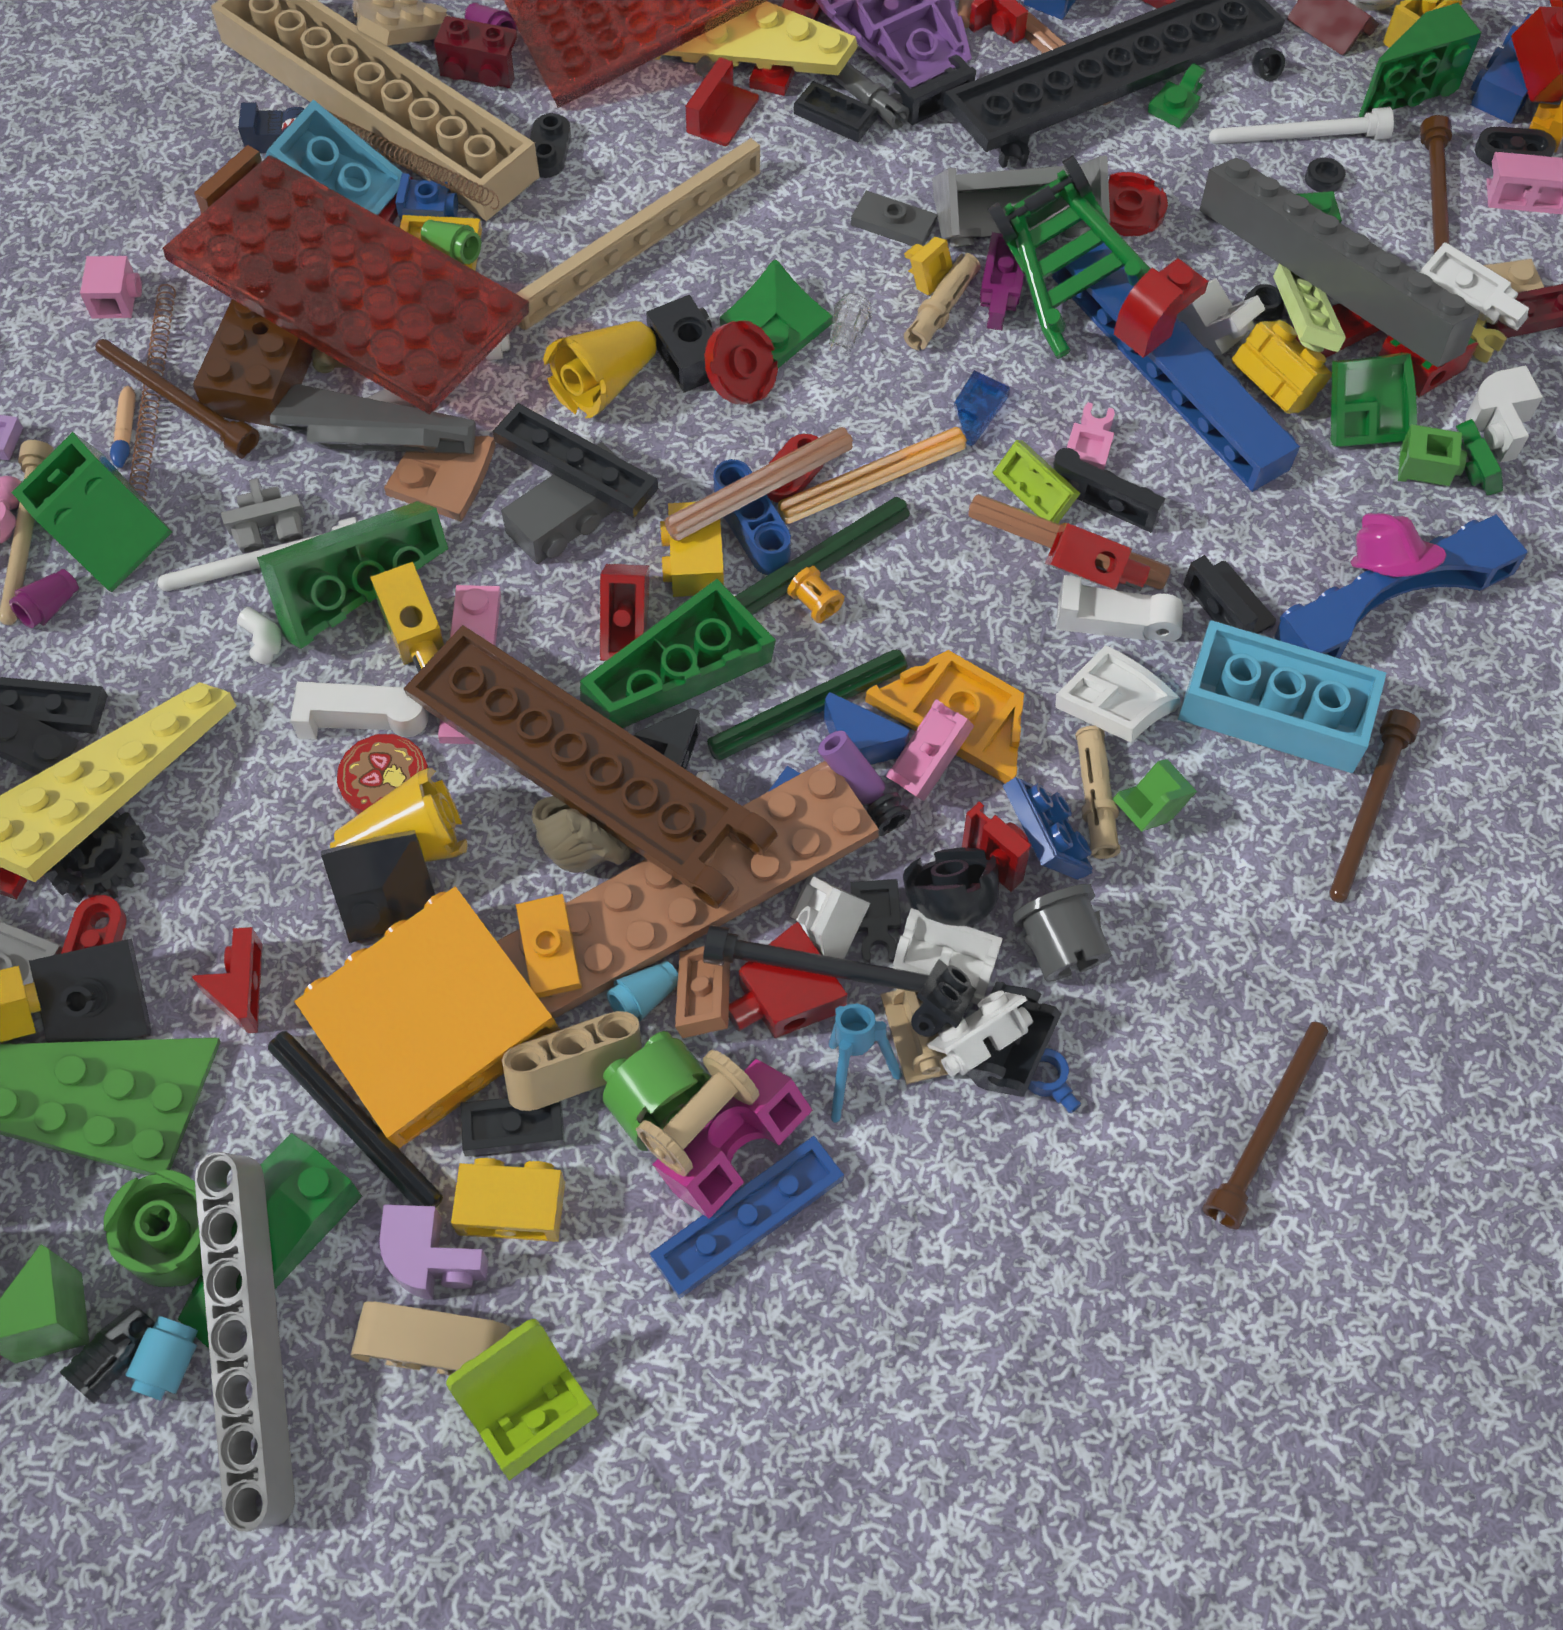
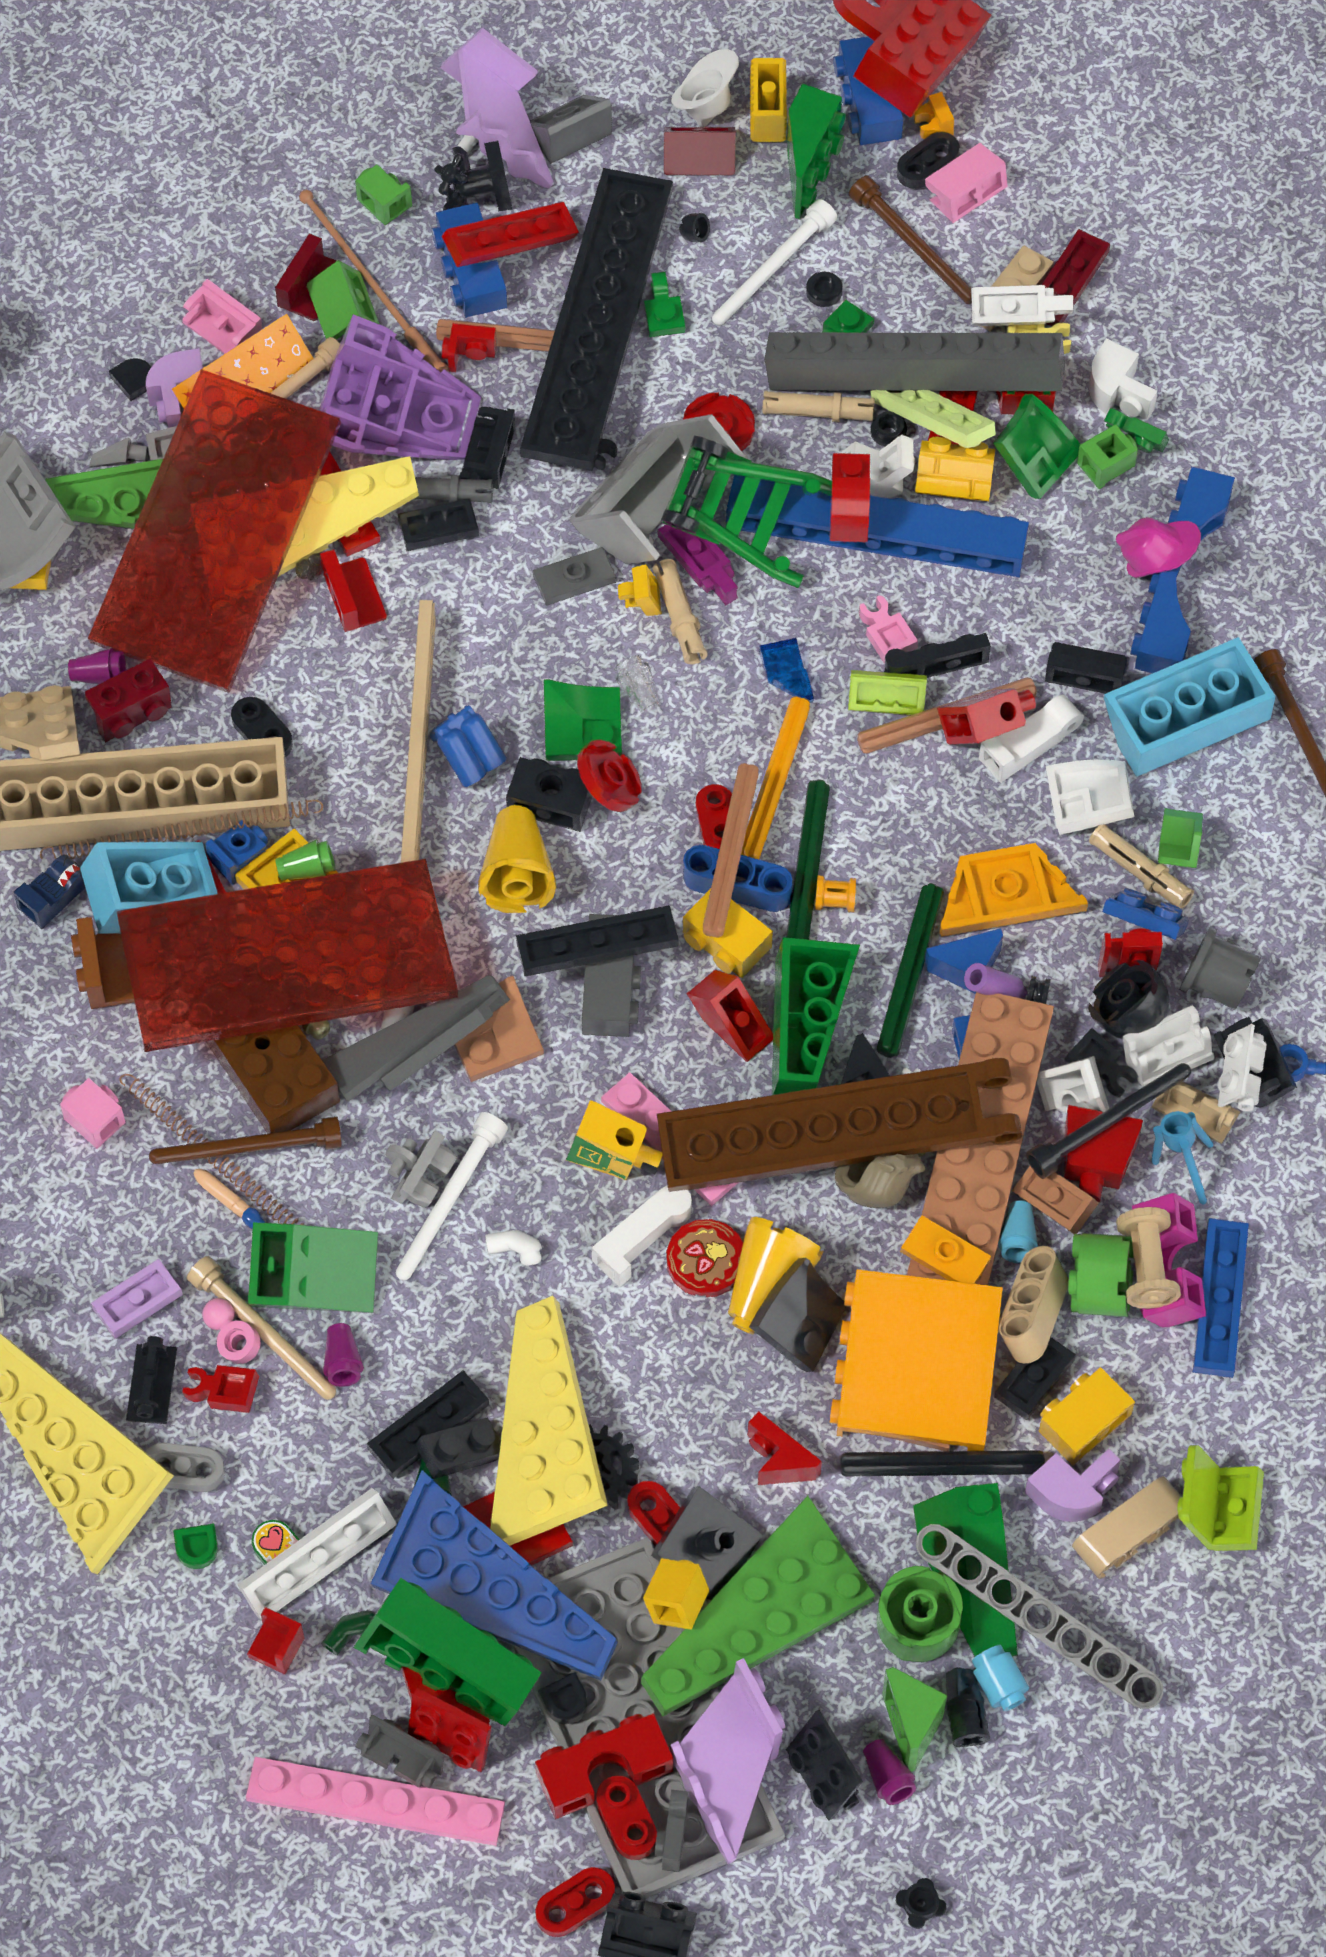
camera: 45 degrees left, 0 degrees up
(331, 573) = (529, 1146): green wedge -> none
(666, 260) = (468, 745): none -> blue piece
(930, 750) = (1023, 930): bright pink hinge -> none
(944, 999) = (1206, 1071): black hinge -> none
(1235, 254) = (818, 406): none -> tan pin

